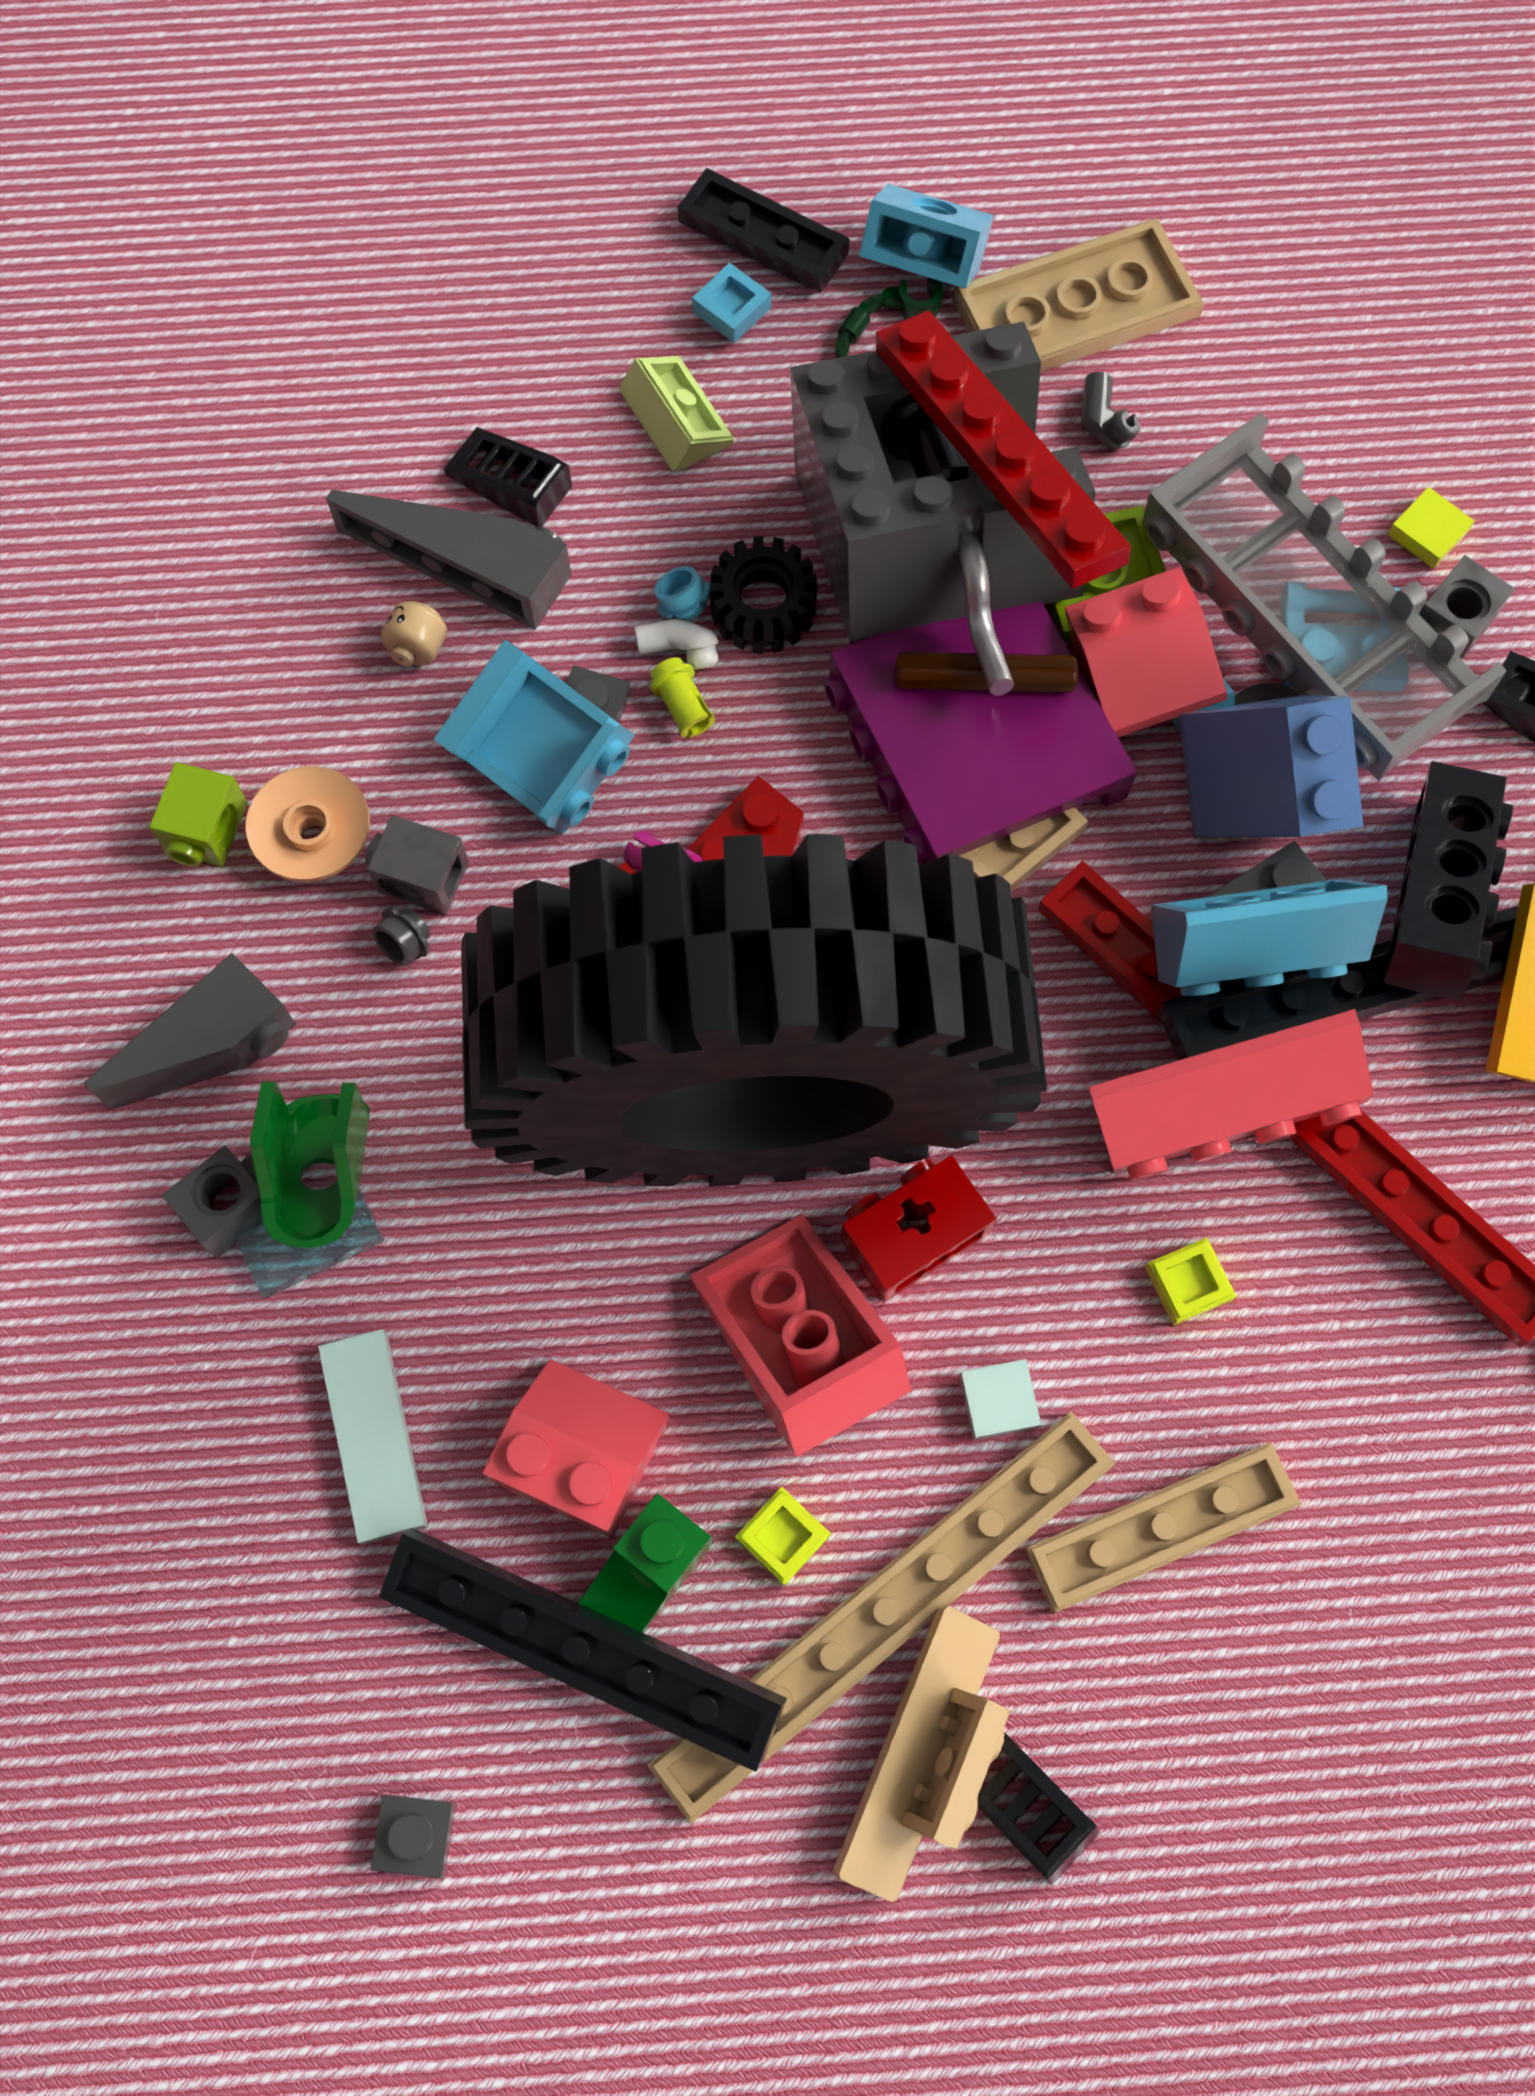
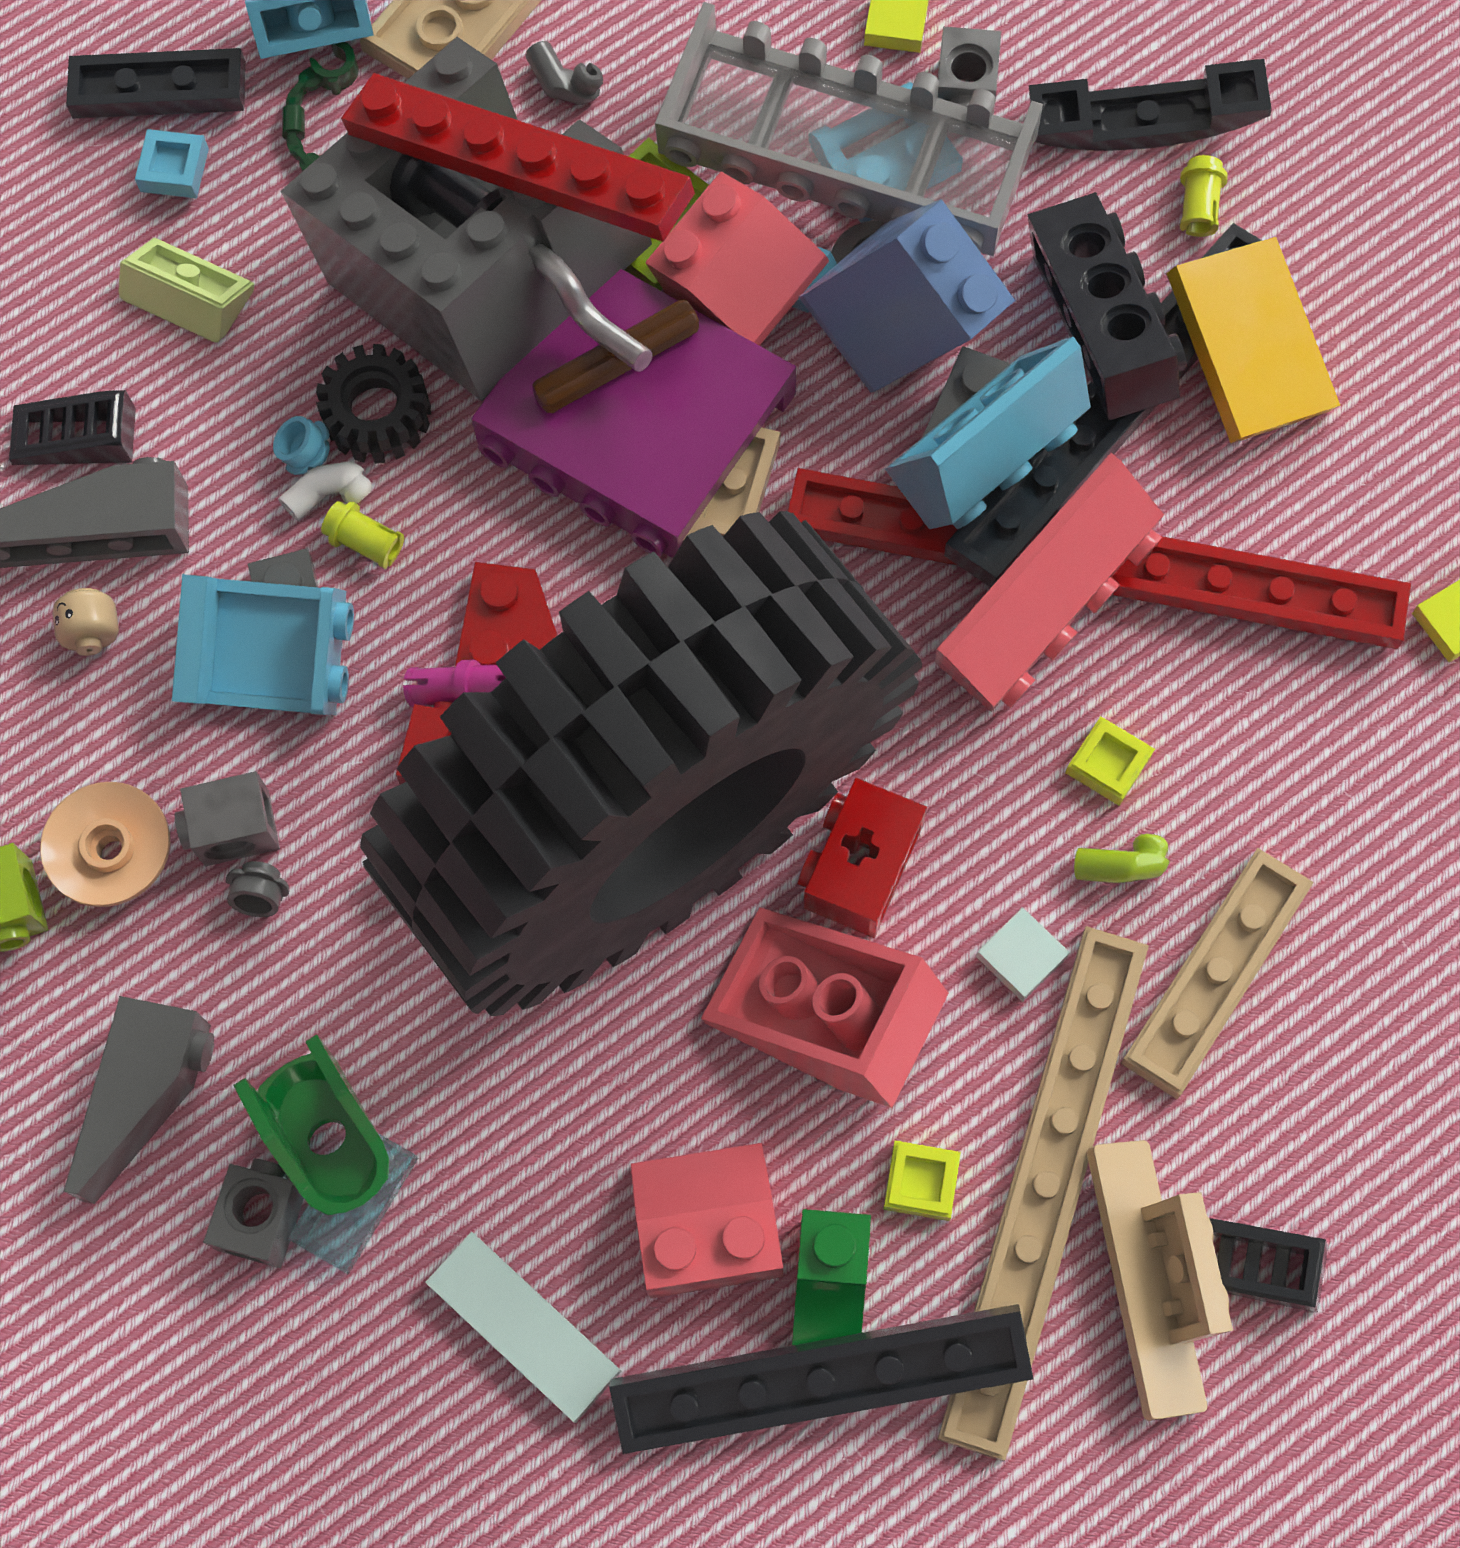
camera: 30 degrees left, 0 degrees up
(1137, 1380) = (1120, 866): none -> lime arm

